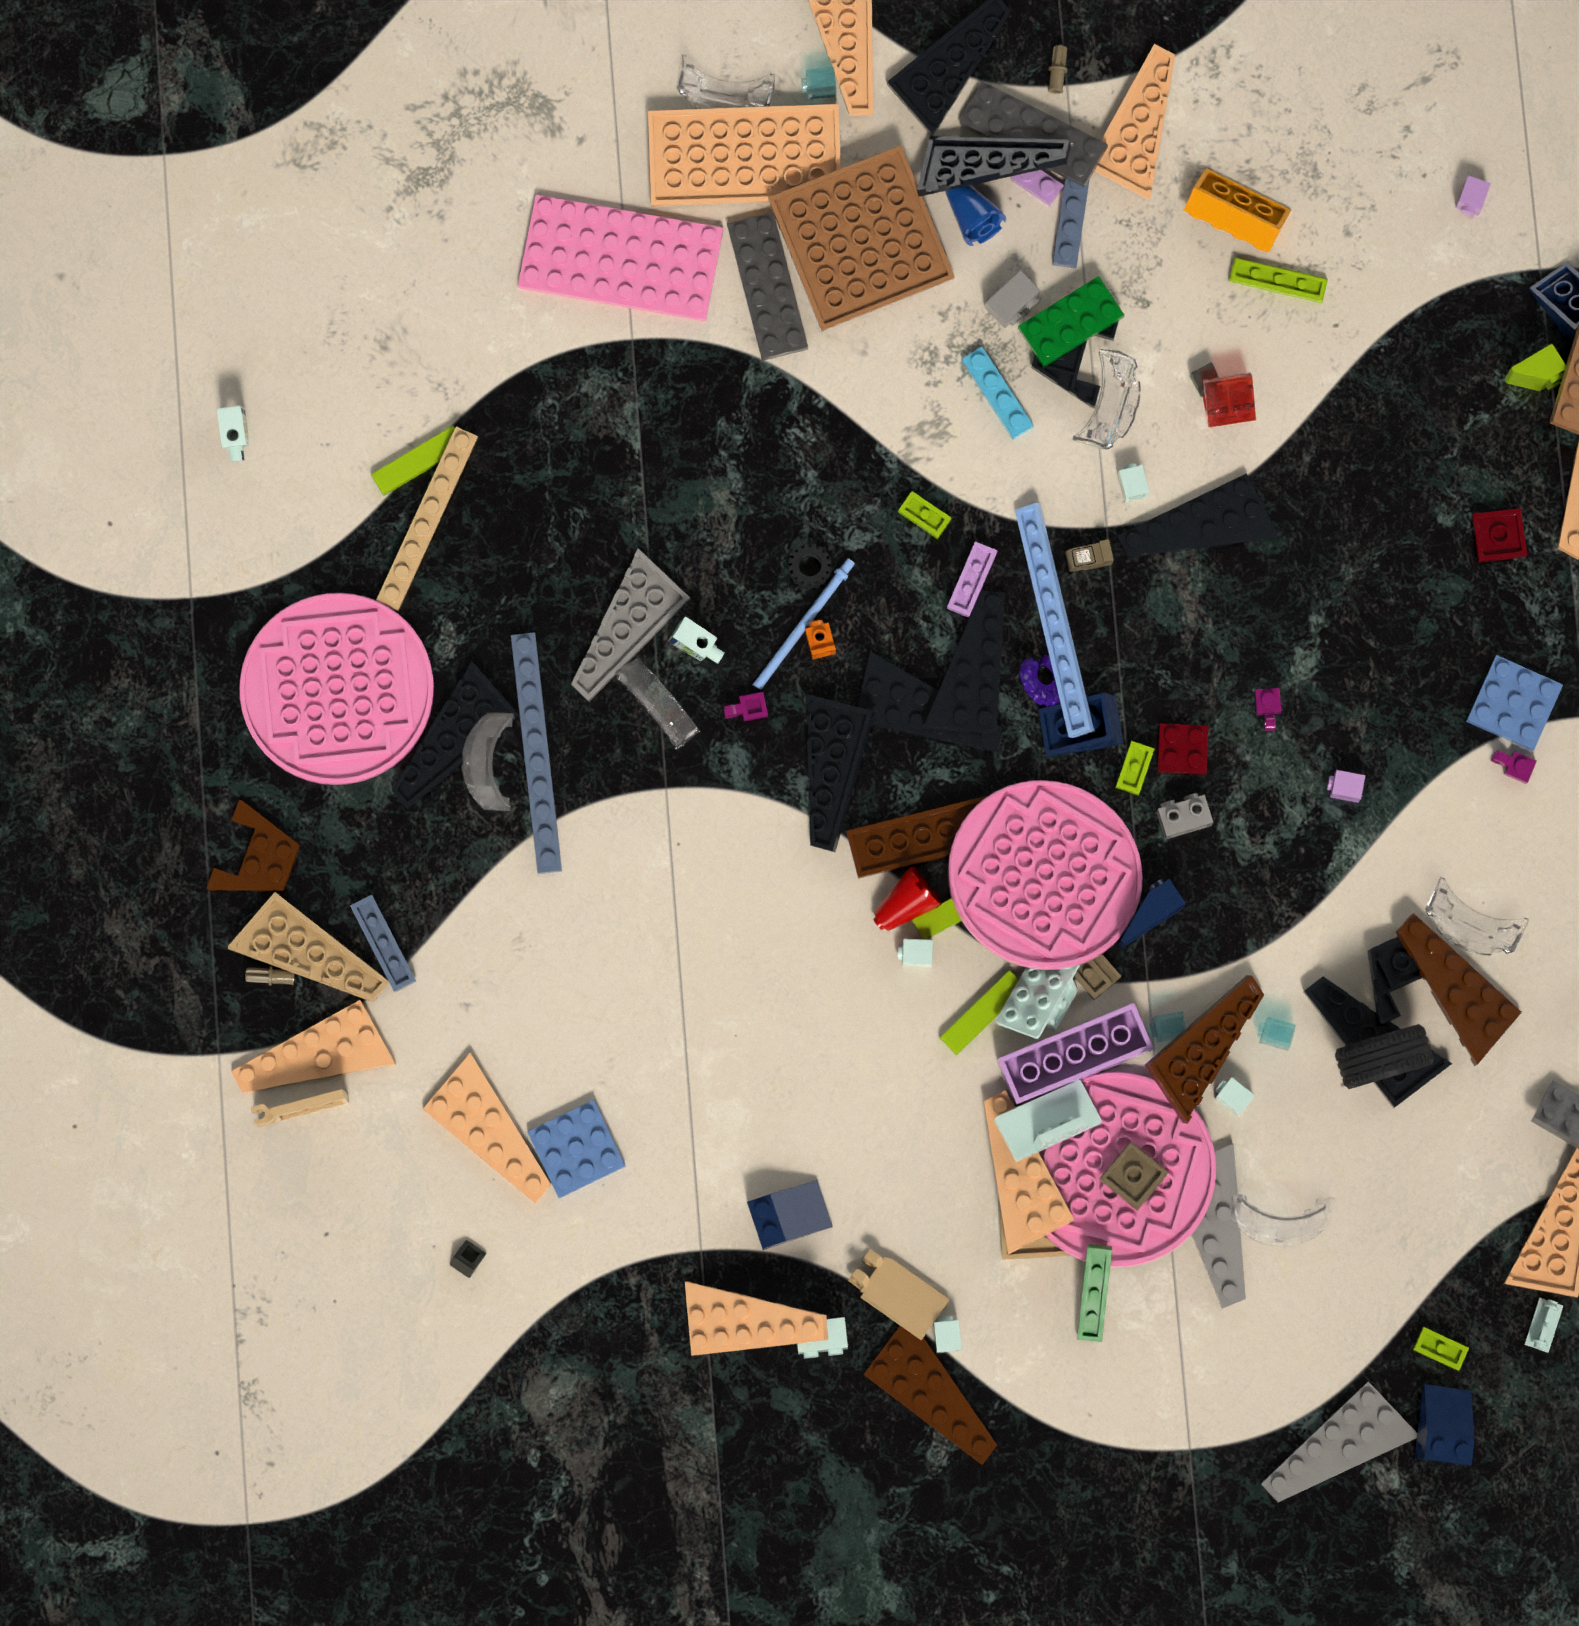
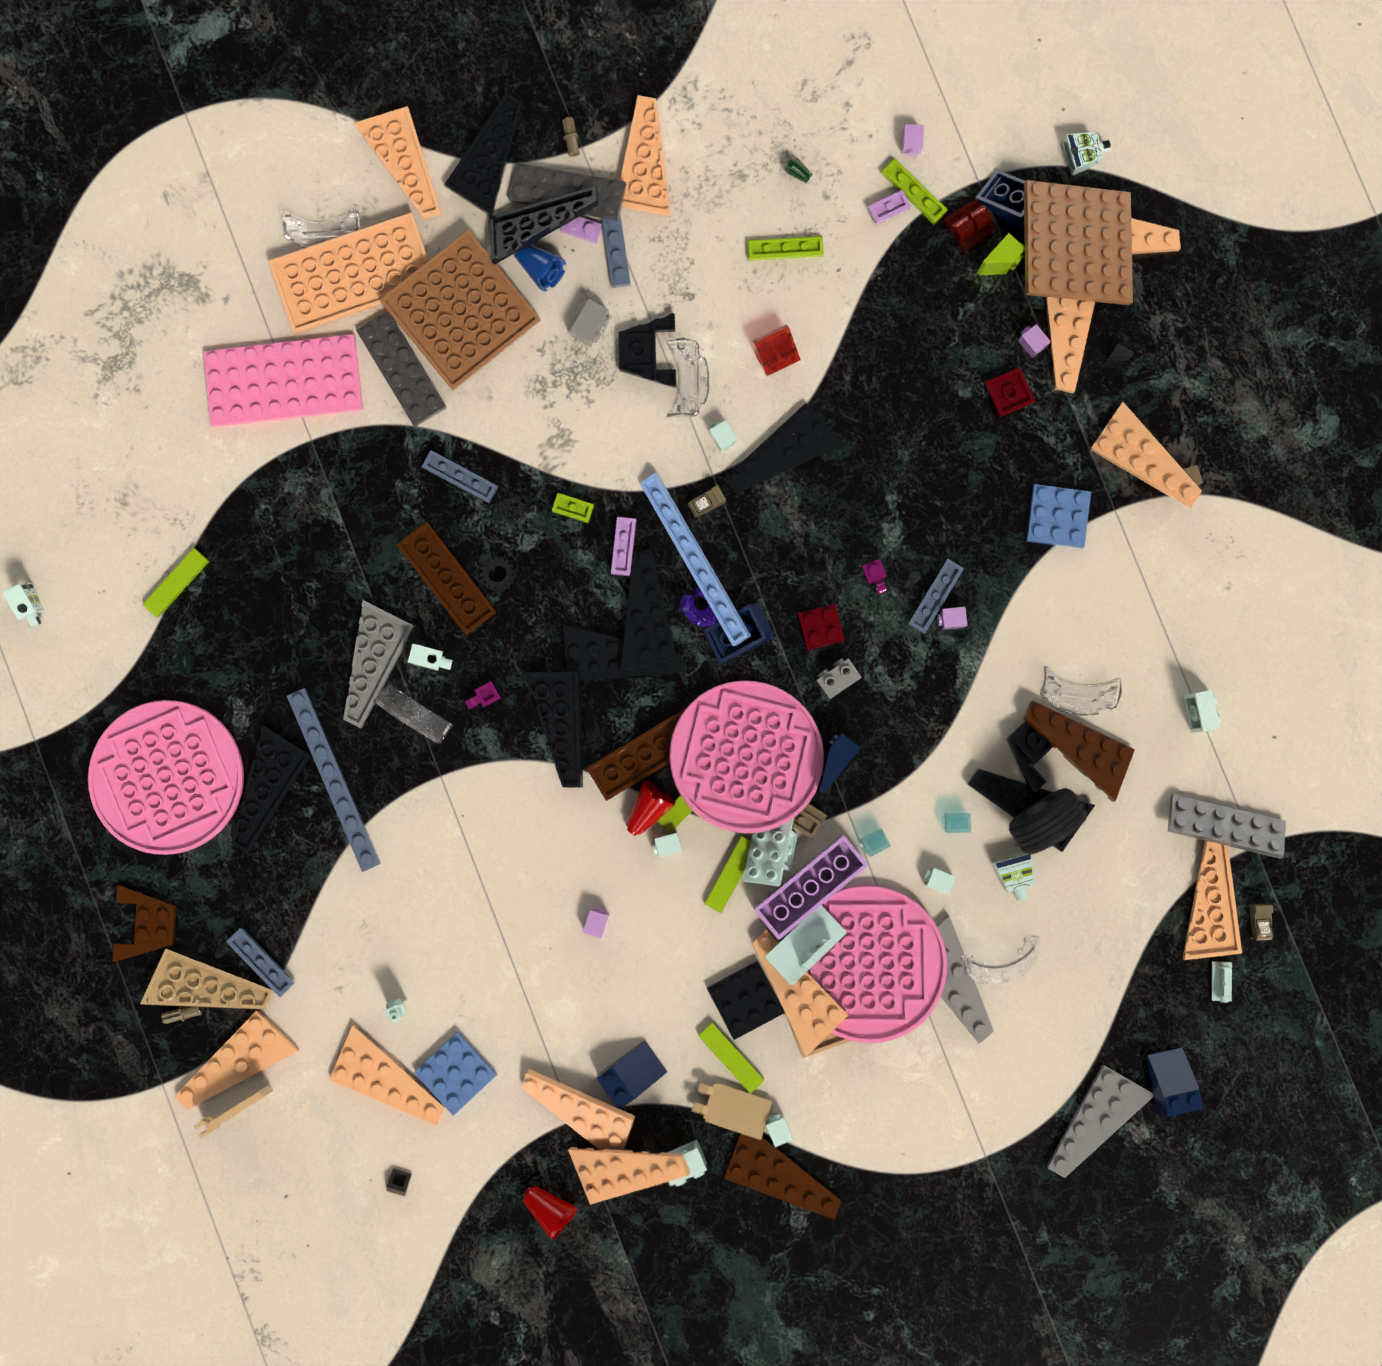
camera: 20 degrees left, 5 degrees up
(427, 518) = (195, 626): tan plate -> none
(478, 761) = (288, 799): clear windscreen -> none
(530, 1046) = (395, 1009): none -> light aqua hinge
(641, 1345) = (549, 1210): none -> red cone
(723, 1248) = (591, 1118): none -> light nougat wing
(746, 553) = (446, 578): none -> reddish brown plate
(799, 436) = (459, 476): none -> sand blue plate
(802, 1019) = (596, 922): none -> lavender brick
(819, 83) = (393, 201): clear light blue brick -> none
(820, 648) = (526, 633): orange brick -> none
(840, 575) = (523, 572): light blue bar -> none
(915, 1233) = (731, 1057): none -> lime tile
(954, 1169) = (745, 1000): none -> black plate
(997, 393) = (599, 398): medium azure plate -> none
(1071, 321) = (638, 326): green plate -> none
(1094, 1292) = (880, 1065): plate -> none
(1134, 1176) = (883, 967): dark tan plate -> none
(1135, 768) = (789, 653): lime plate -> none
(1198, 1052) = (904, 856): reddish brown wing -> none
(1205, 372) = (747, 339): pearl dark grey slope -> none
(1237, 210) = (738, 204): light orange slope -> none
(1322, 191) = (798, 170): none -> dark green cone
(1329, 1117) = (1015, 874): none -> light aqua torso
(1334, 753) = (935, 596): none -> sand blue plate
(1420, 268) = (889, 207): none -> lavender plate
(1440, 1349) = (1151, 1023): lime plate -> none
(1456, 258) = (914, 191): none -> lime tile
(1513, 319) = (970, 224): none -> clear red plate
(1517, 766) = (1075, 563): magenta plate -> none
(1547, 481) = (1033, 340): none -> lavender brick

